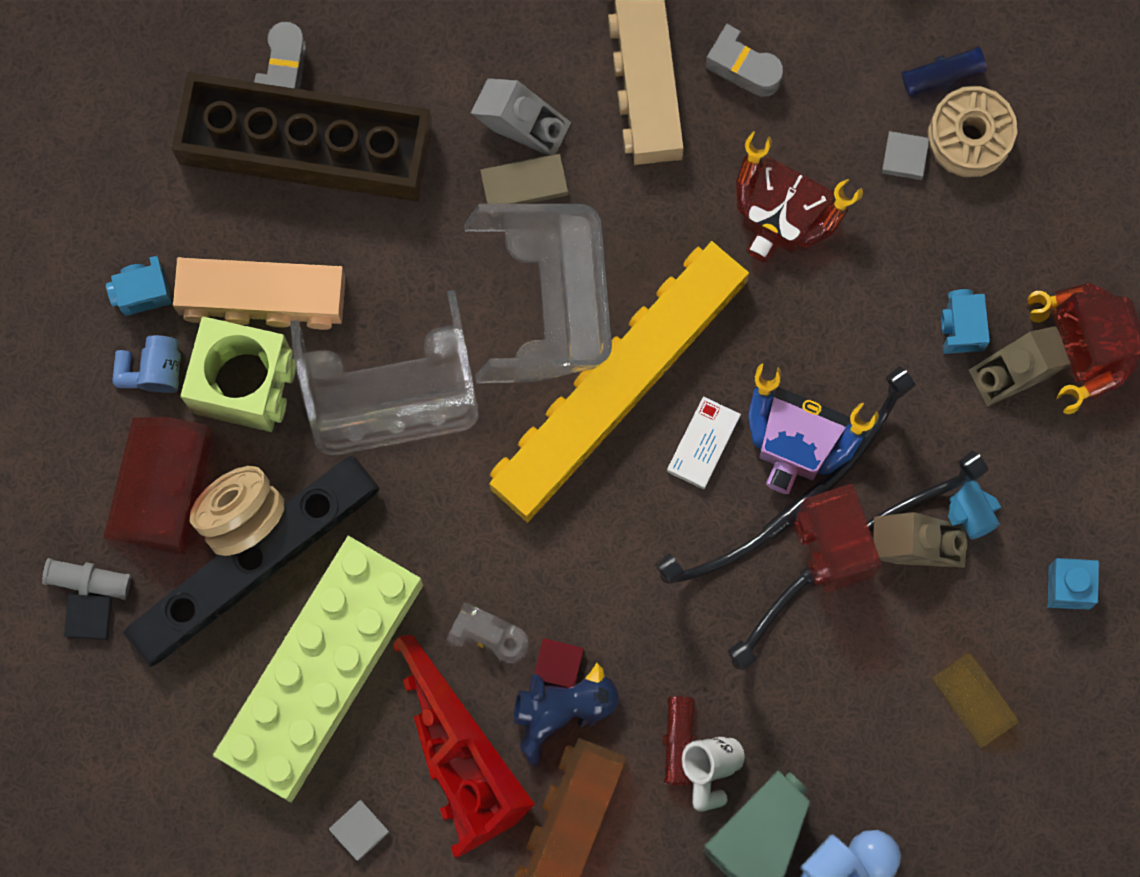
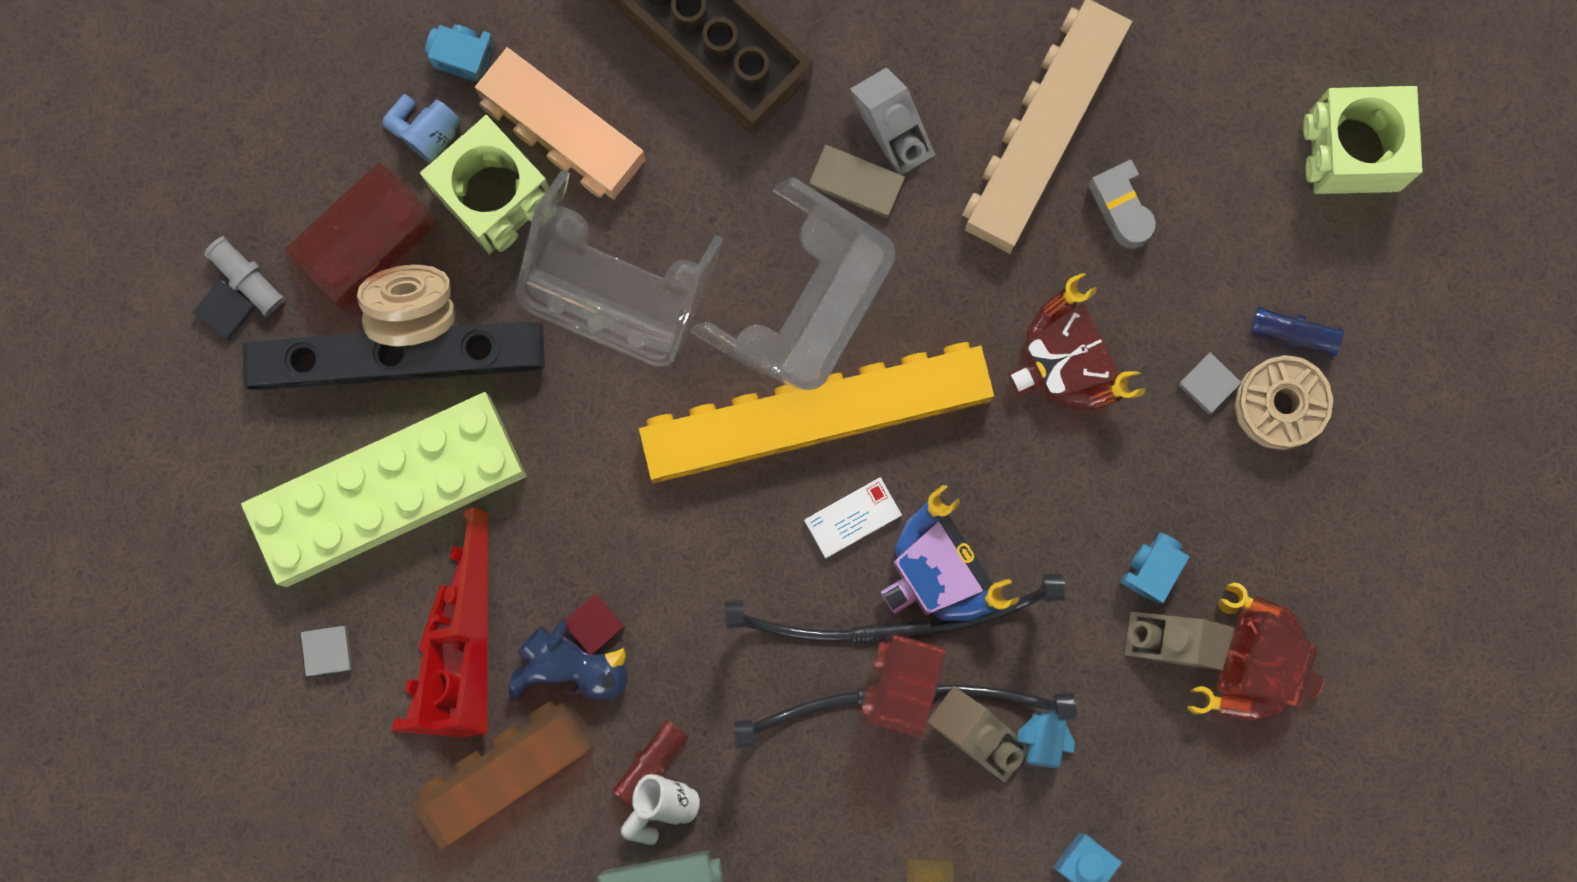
camera: 30 degrees right, 5 degrees up
(487, 631) = (560, 574): clear leg -> none

